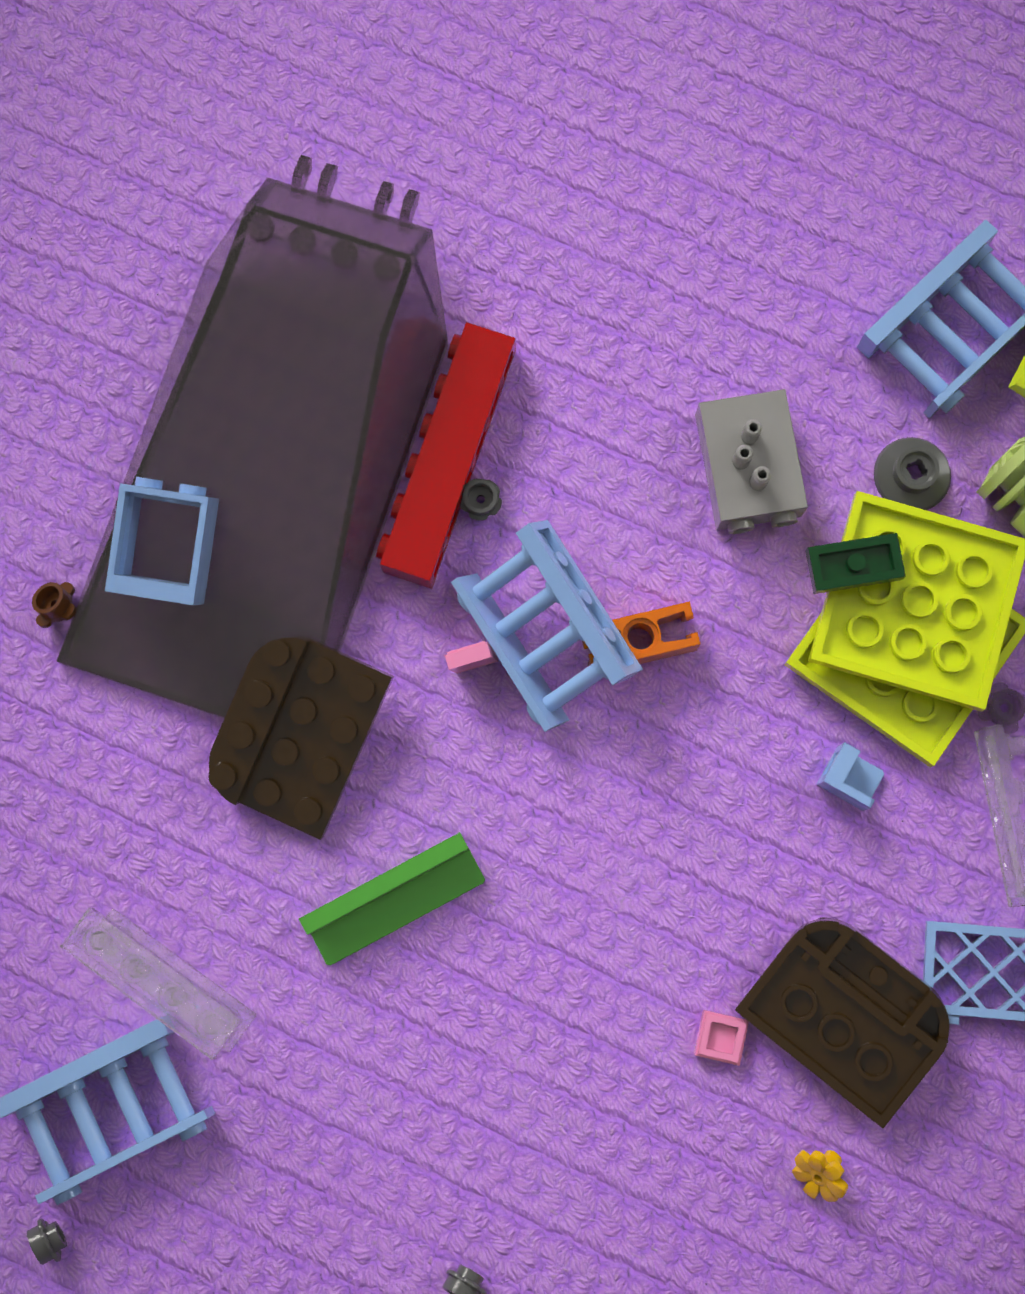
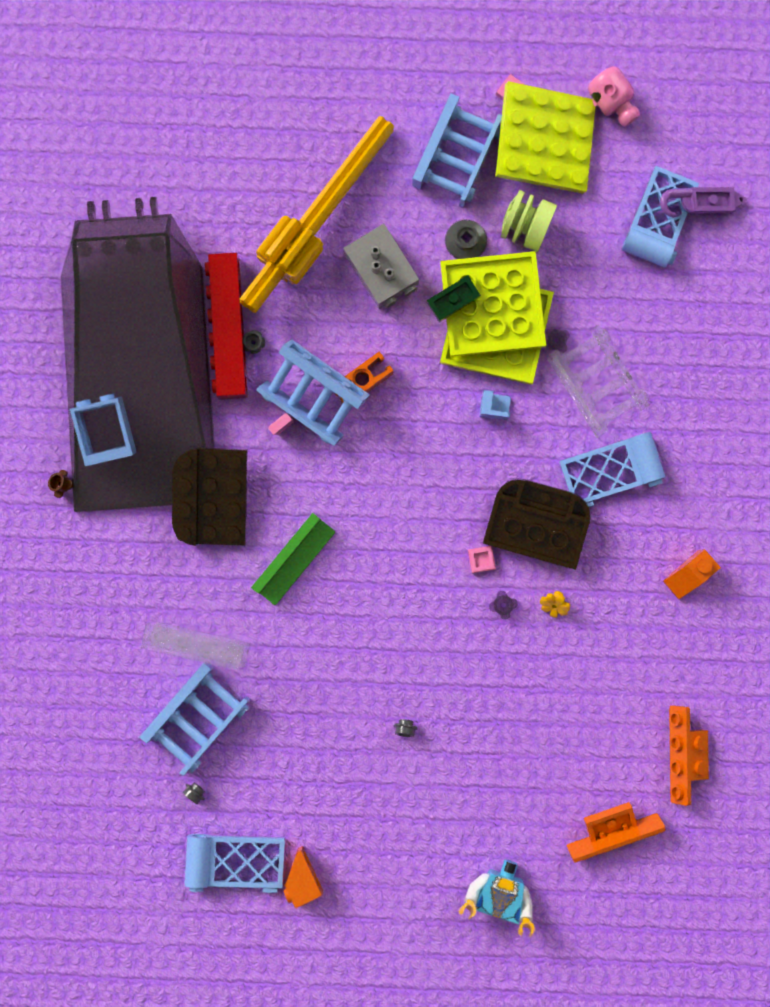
camera: 25 degrees left, 5 degrees up
(616, 359) = (292, 242): none -> yellow axle
(740, 1140) = (503, 611): none -> clear purple plate

